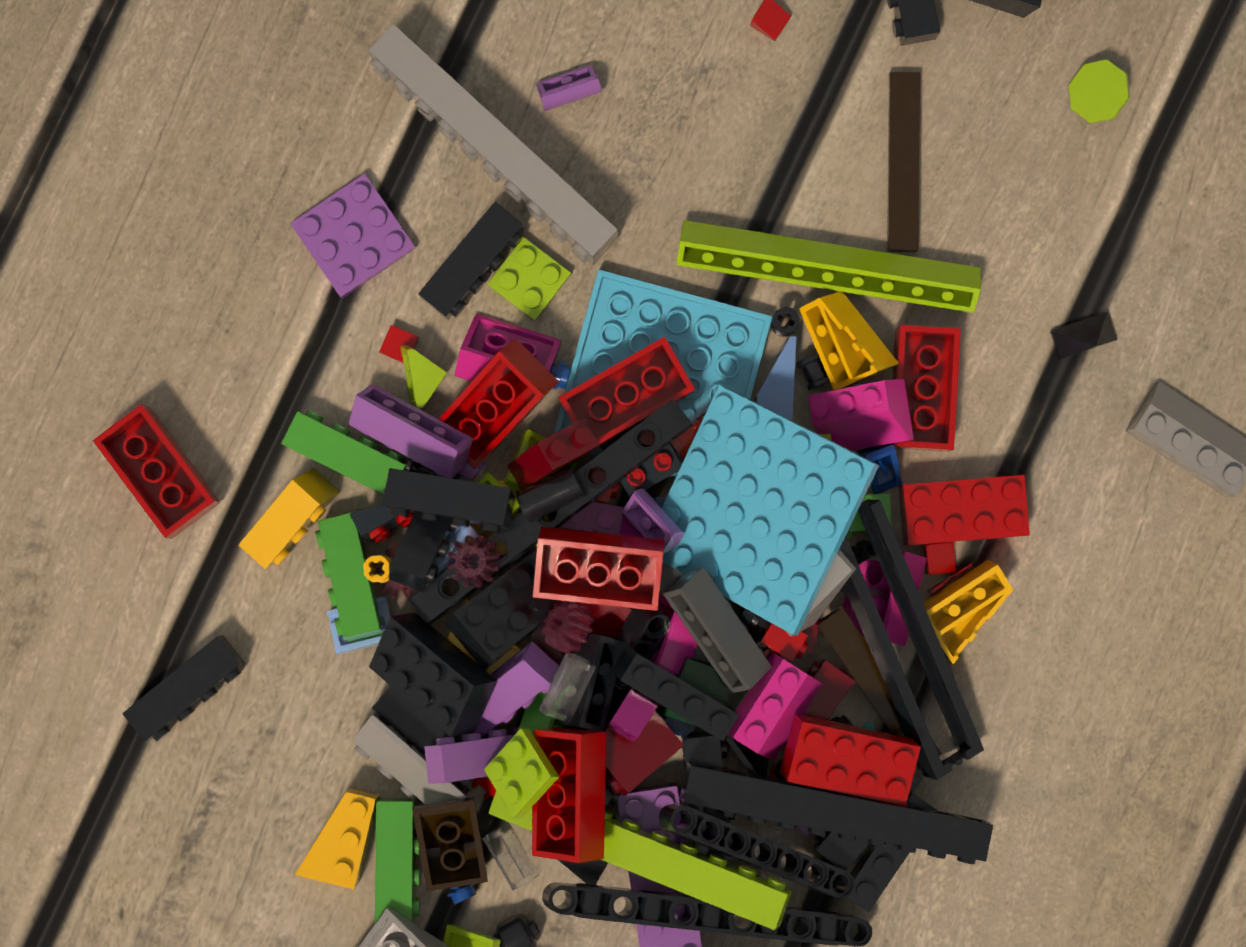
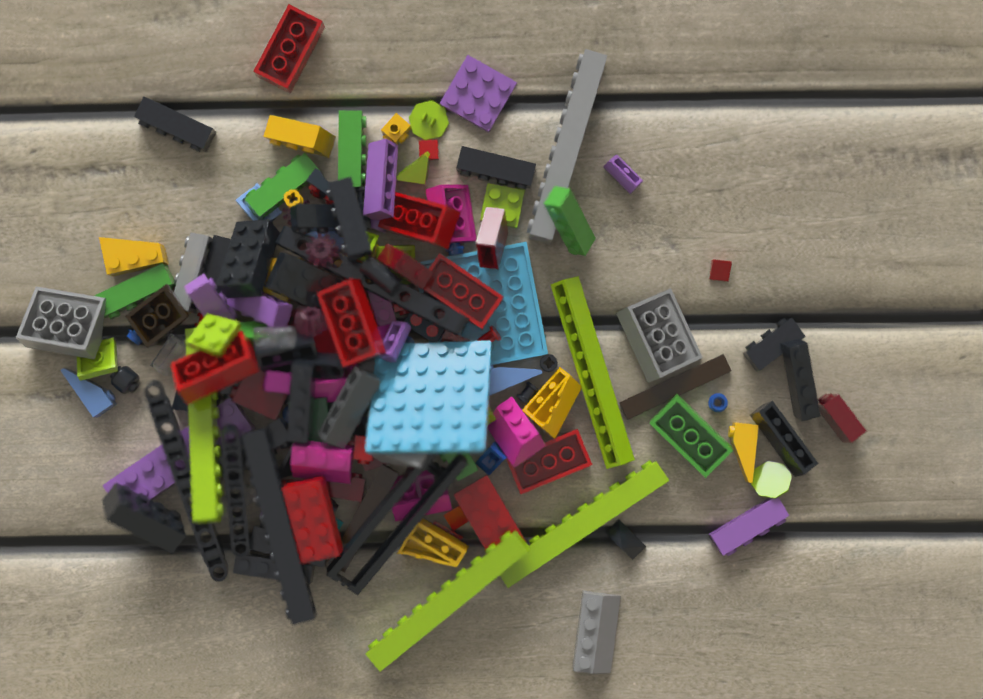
camera: 70 degrees right, 0 degrees up
(348, 376) = (396, 129): none -> yellow brick
(356, 324) = (428, 120): none -> lime piece
(571, 313) = (492, 238): none -> brick
(602, 191) = (569, 220): none -> bright green brick
(708, 385) = (491, 335): none -> red piece
(821, 148) = (659, 335): none -> light grey slope
(961, 107) = (724, 402): none -> blue plate
(984, 171) = (691, 435): none -> bright green brick
(1033, 105) = (744, 445): none -> yellow slope
(1033, 385) = (586, 520): none -> lime brick
(1051, 45) = (784, 439): none -> black brick
(1053, 625) = (448, 600): none -> lime brick
(1147, 154) = (748, 525): none -> medium lavender brick

